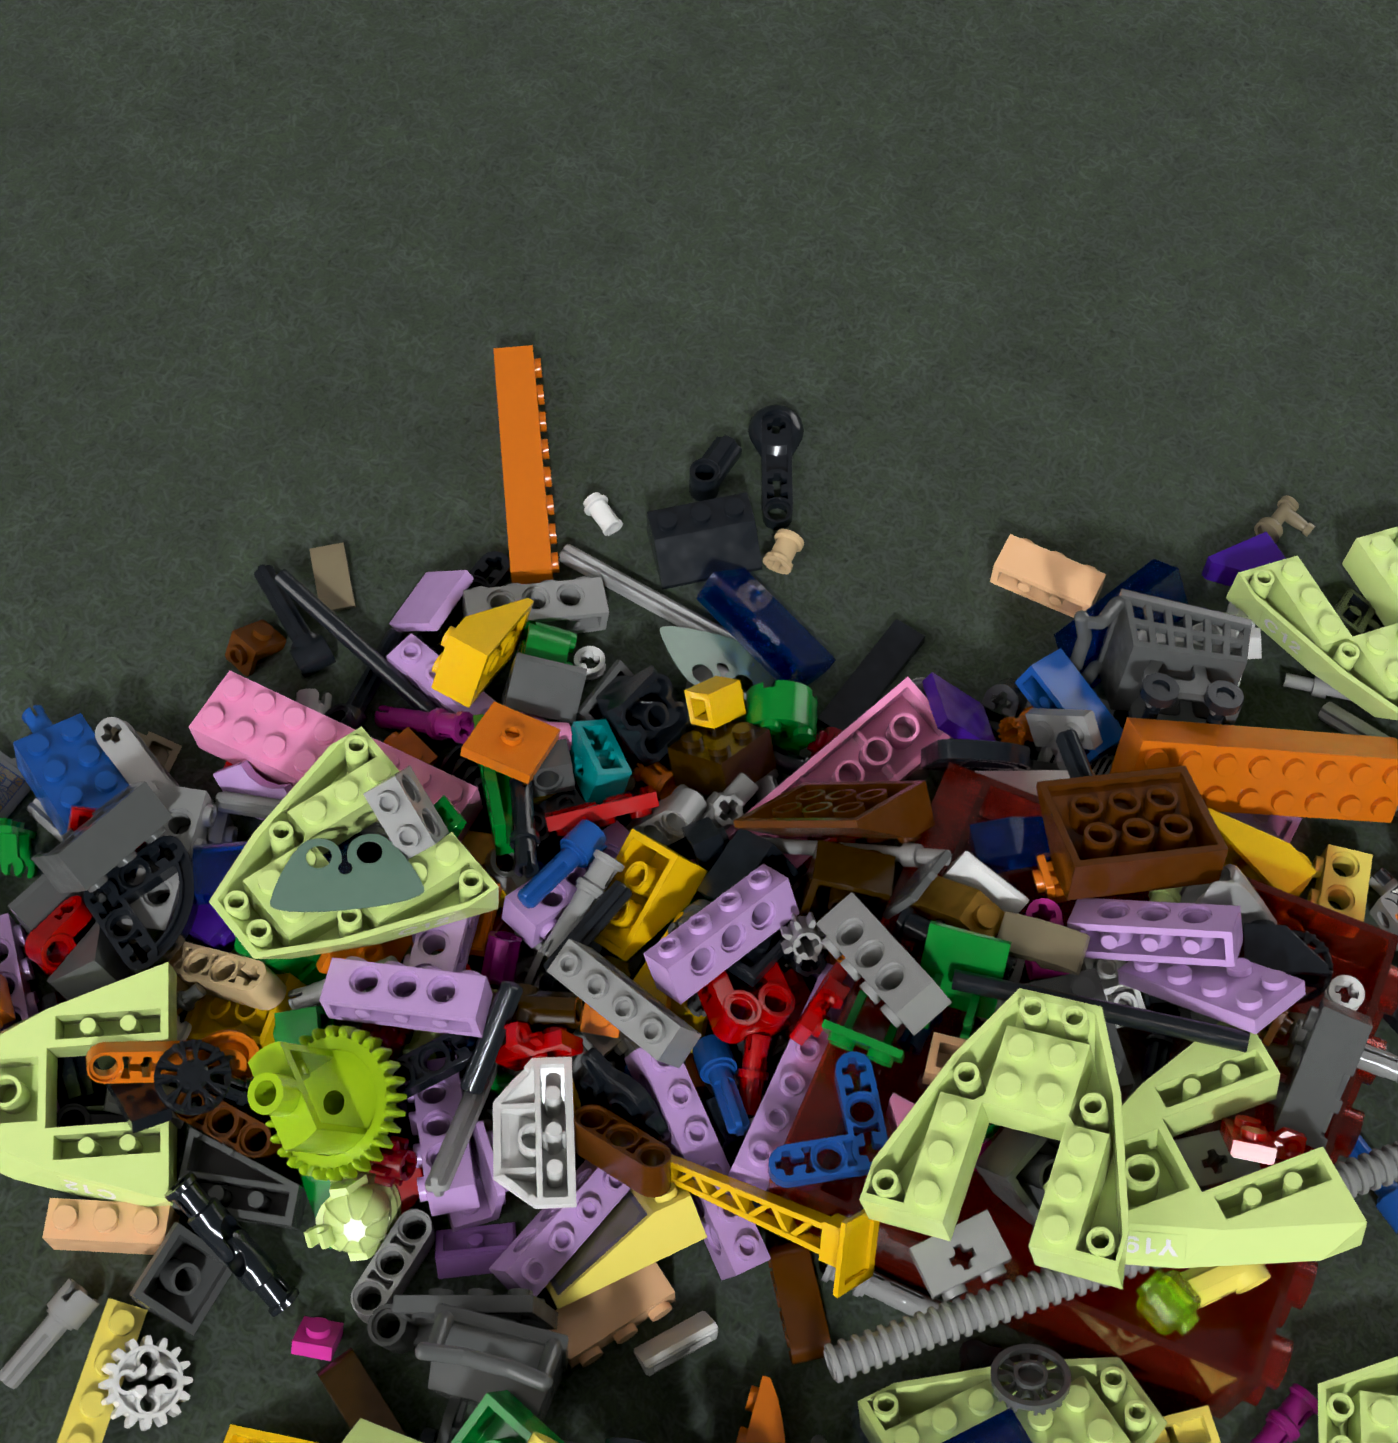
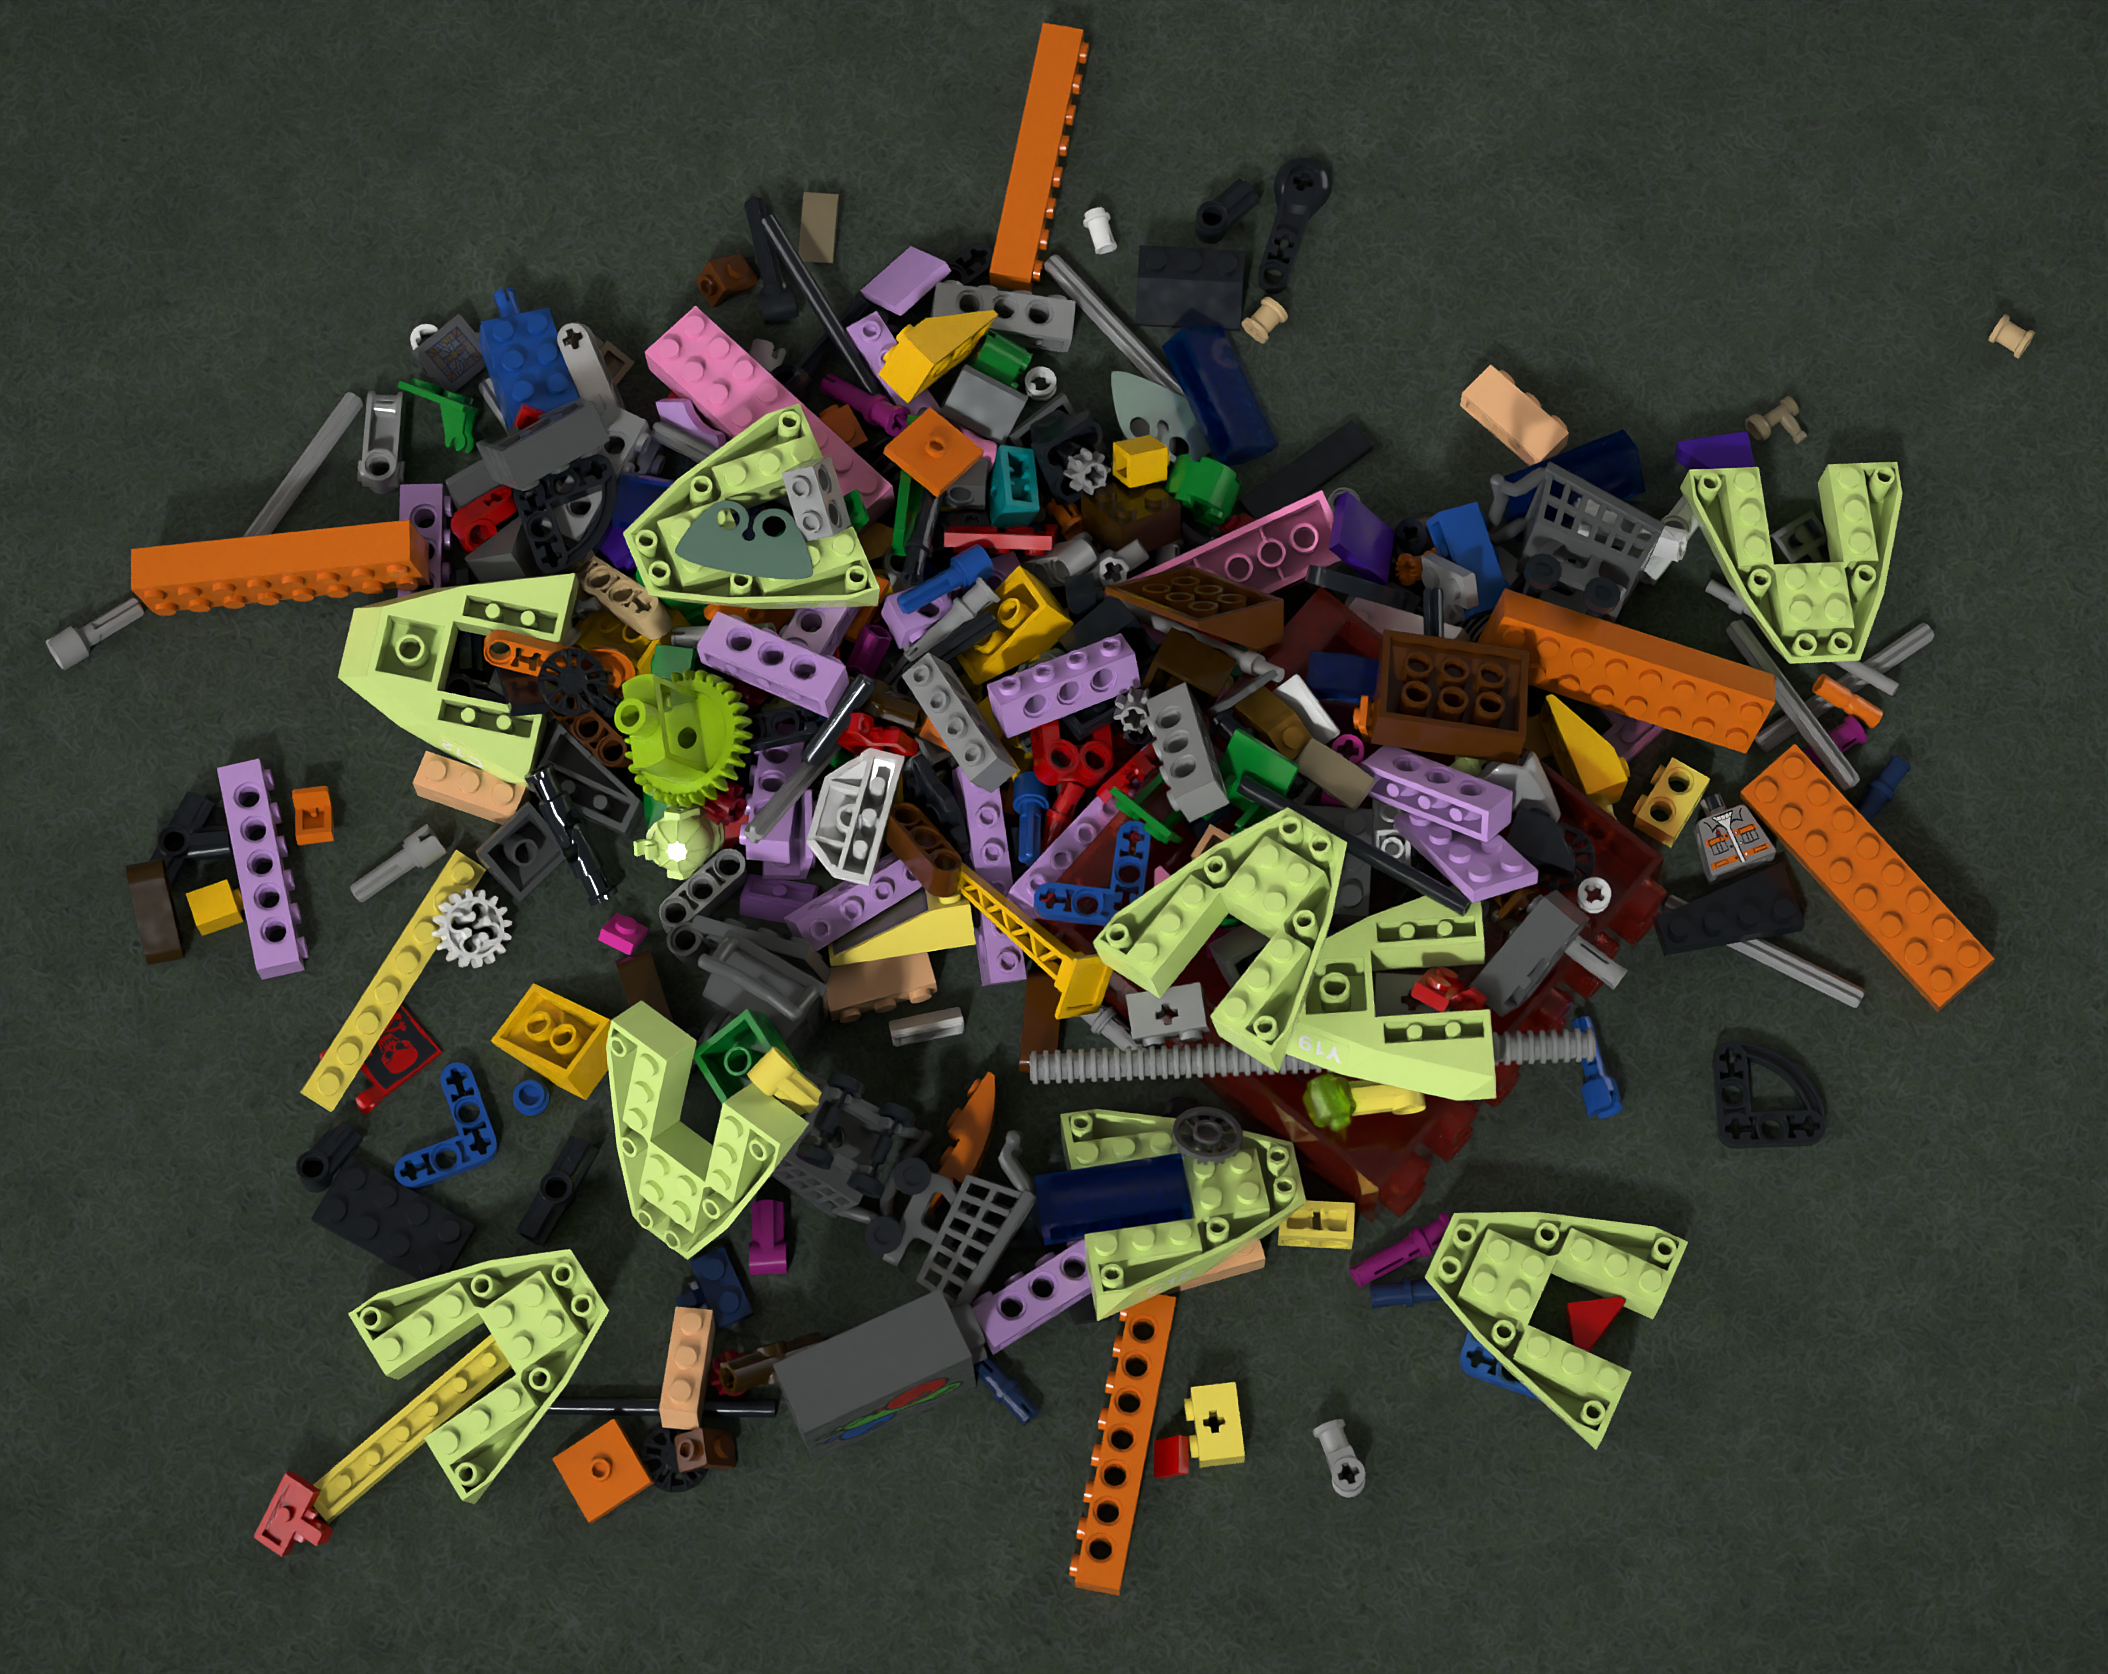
camera: 20 degrees right, 10 degrees up
(668, 722) = (1087, 471): none -> light grey gear

